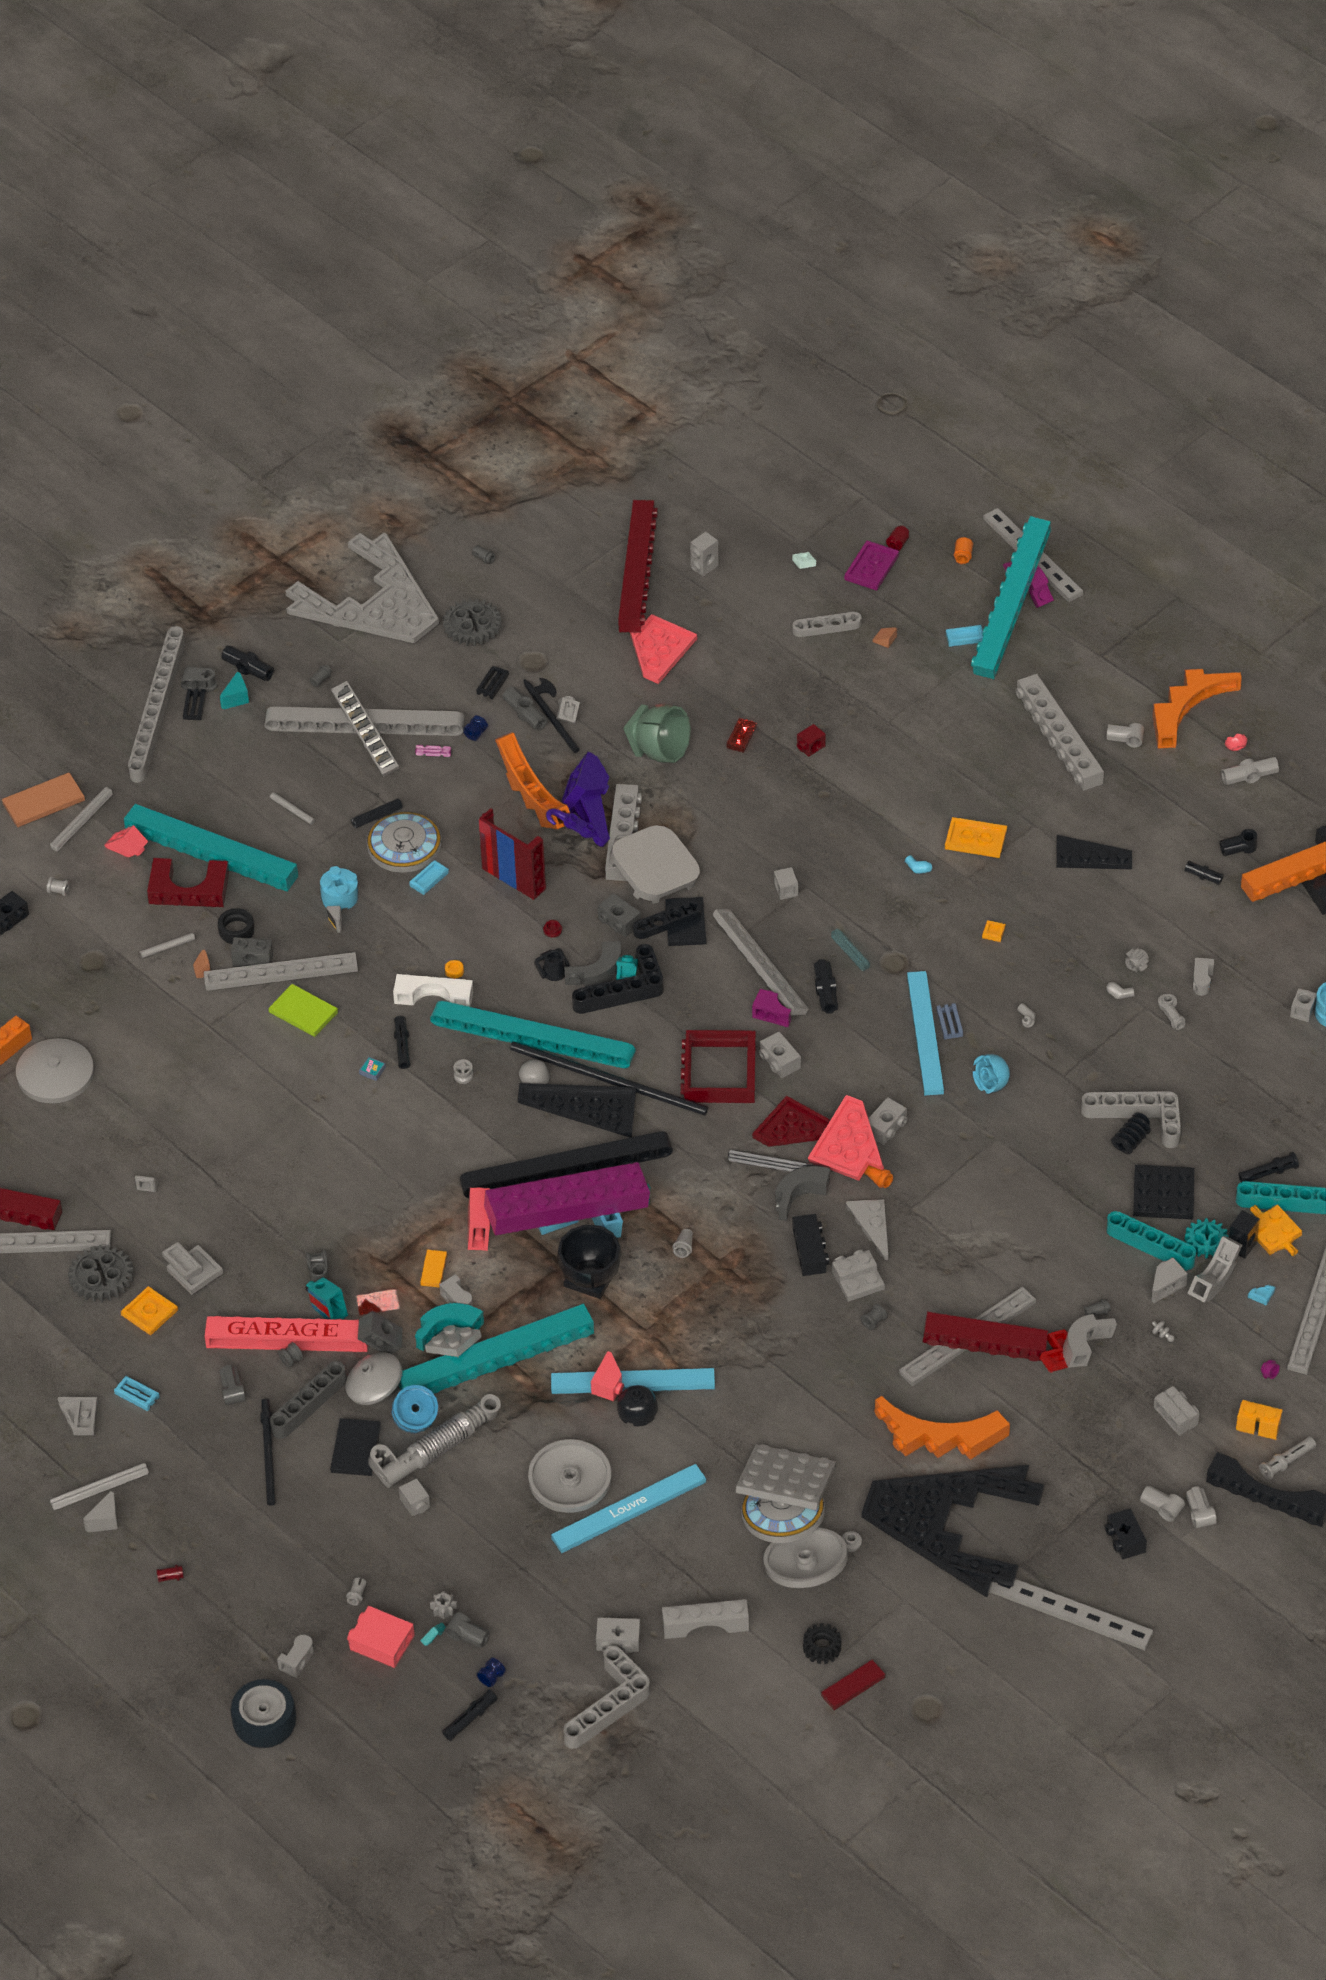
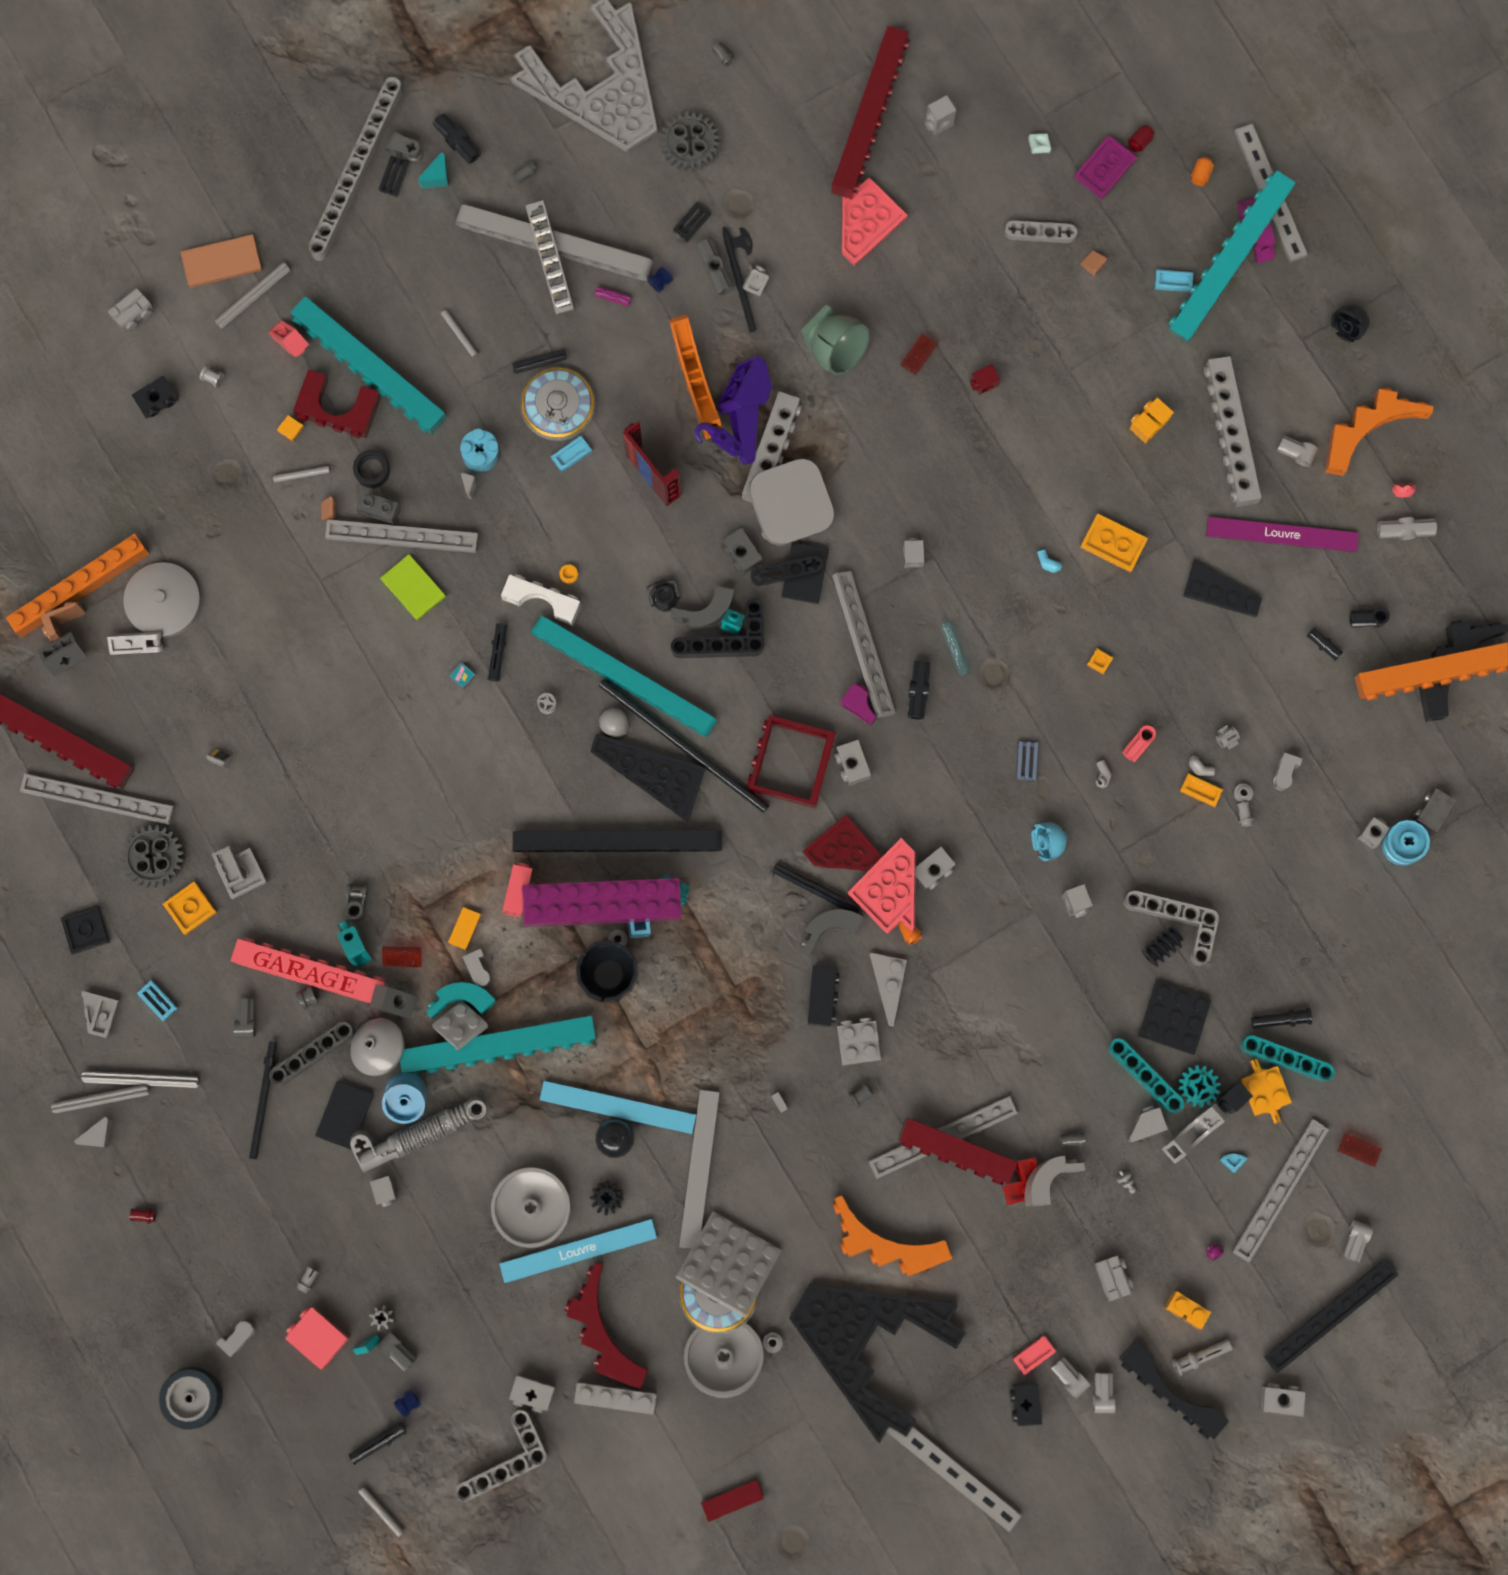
camera: 10 degrees right, 30 degrees up
(37, 1106) = (134, 643): none -> light grey plate
(46, 1351) = (85, 930): none -> black tile
(134, 1460) = (140, 1079): none -> light grey axle
(146, 912) = (290, 428): none -> light orange tile
(490, 1776) = (381, 1512): none -> light grey bar
(552, 928) = (674, 550): dark red plate -> none
(607, 1379) = (593, 1107): coral slope -> none
(644, 1455) = (602, 1193): none -> black gear
(670, 1573) = (586, 1310): none -> dark red arch
(683, 1245) = (705, 962): light grey cone -> none
(730, 1411) = (699, 1168): none -> light grey tile
(794, 1339) = (779, 1102): none -> light grey tile
(822, 1653) = (727, 1454): black tyre -> none
(925, 1033) = (1000, 769): medium azure tile -> none
(979, 739) = (1151, 420): none -> light orange piece
(1034, 1112) = (1077, 901): none -> light grey brick
(1055, 980) = (1139, 744): none -> coral piece
(1120, 1494) = (1034, 1355): none -> coral tile
(1126, 1009) = (1201, 790): none -> light orange tile
(1133, 800) = (1282, 534): none -> magenta tile
(1140, 629) = (1350, 322): none -> black cylinder

